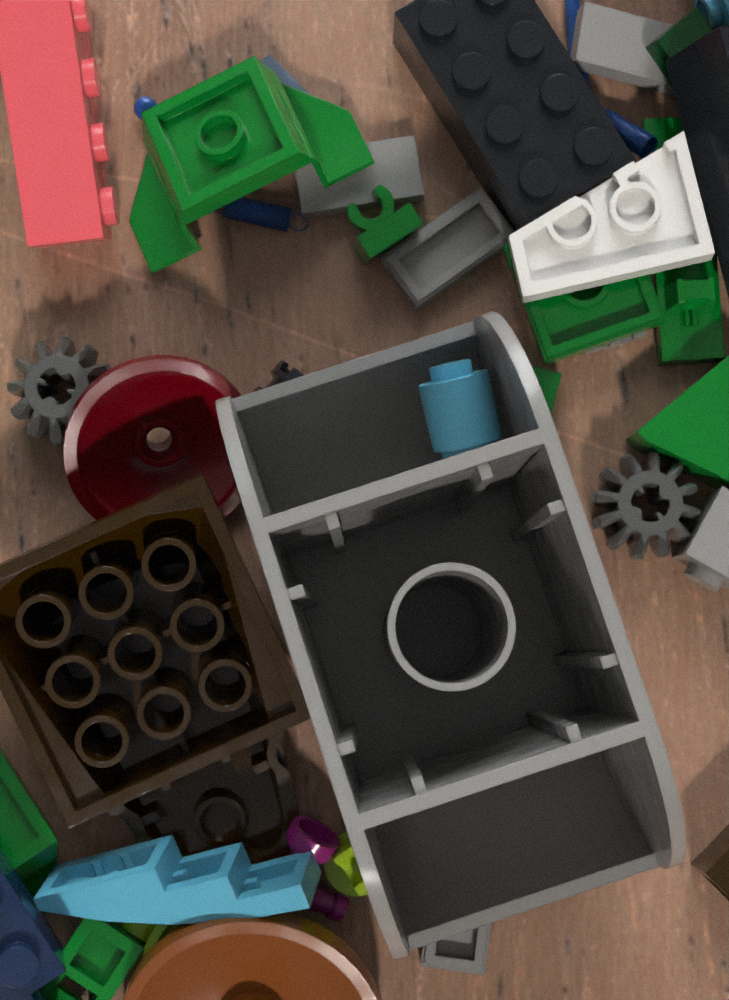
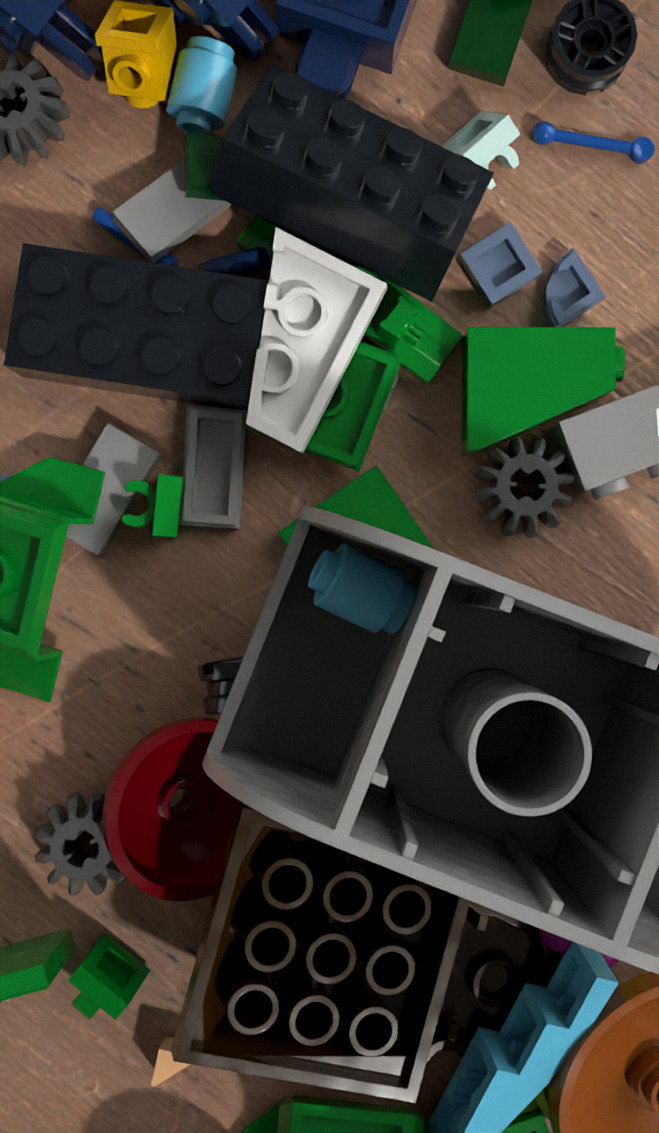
camera: 55 degrees left, 5 degrees up
(260, 214) = (74, 583): blue piece -> none

